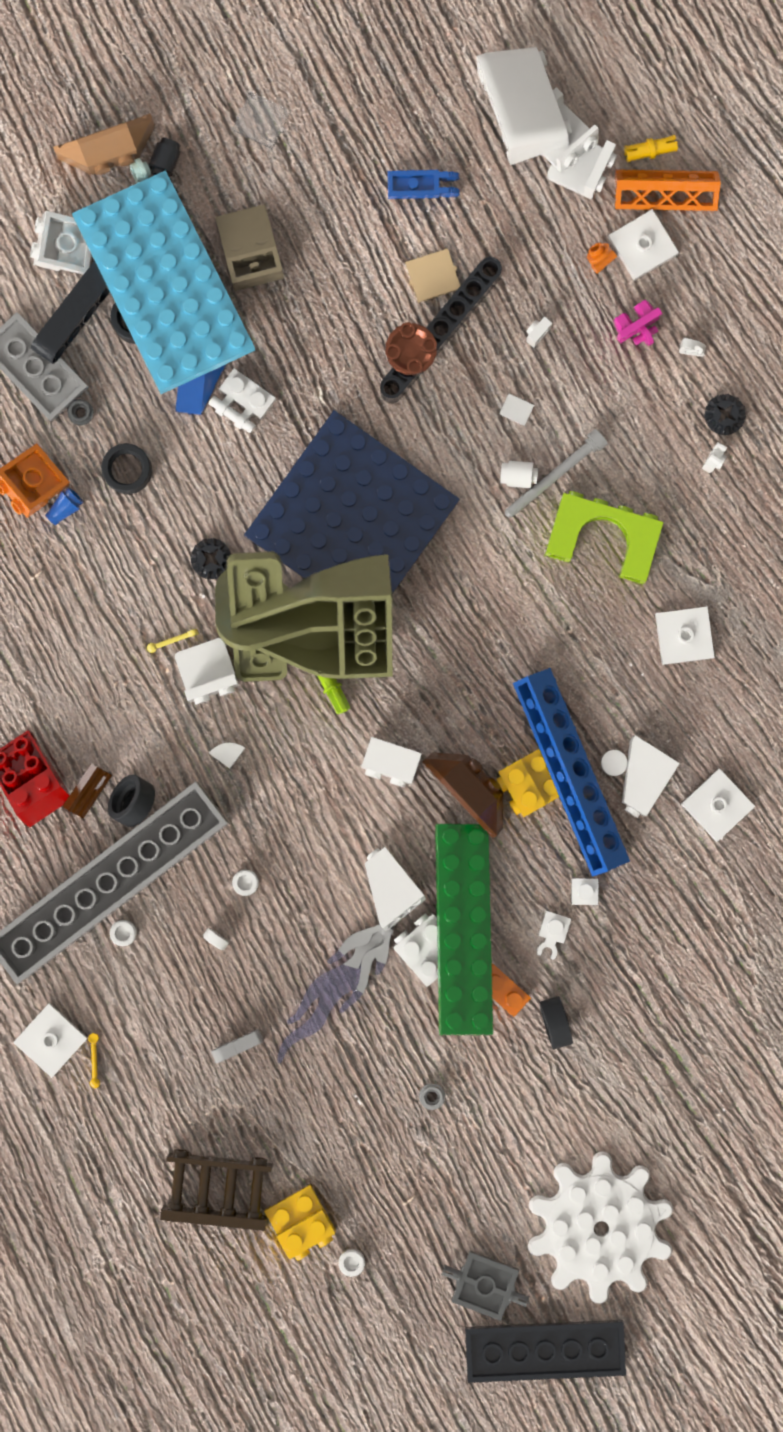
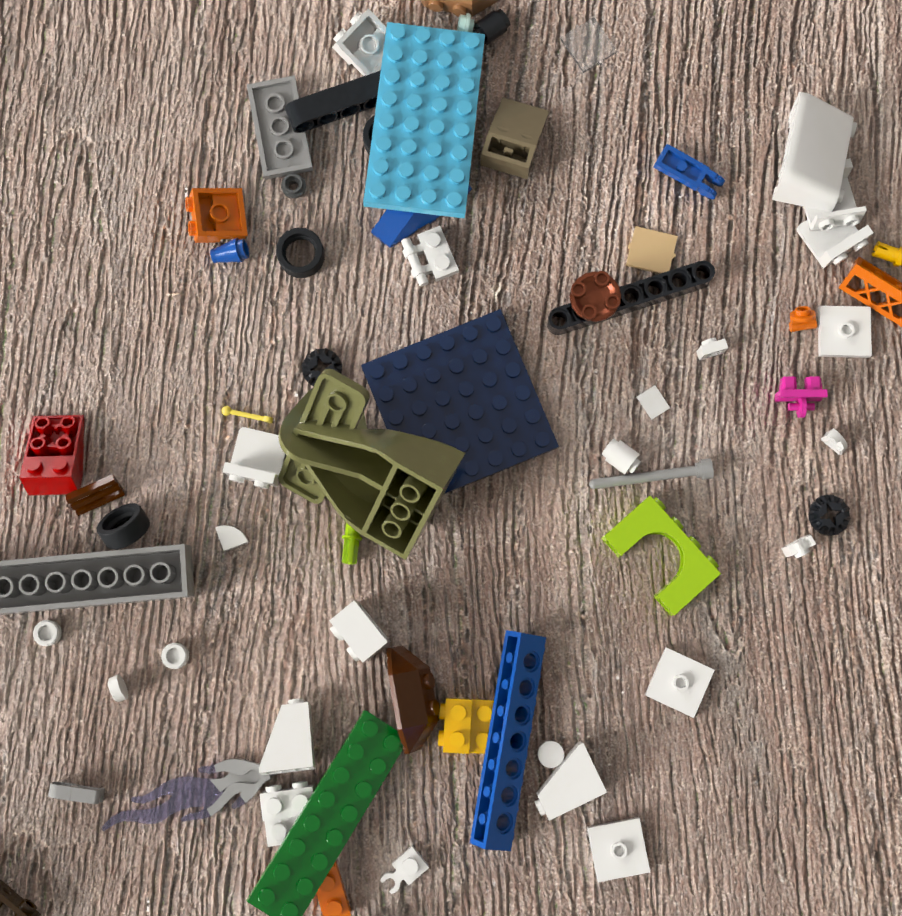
camera: 35 degrees right, 5 degrees down
(584, 891) = (455, 850): white plate -> none

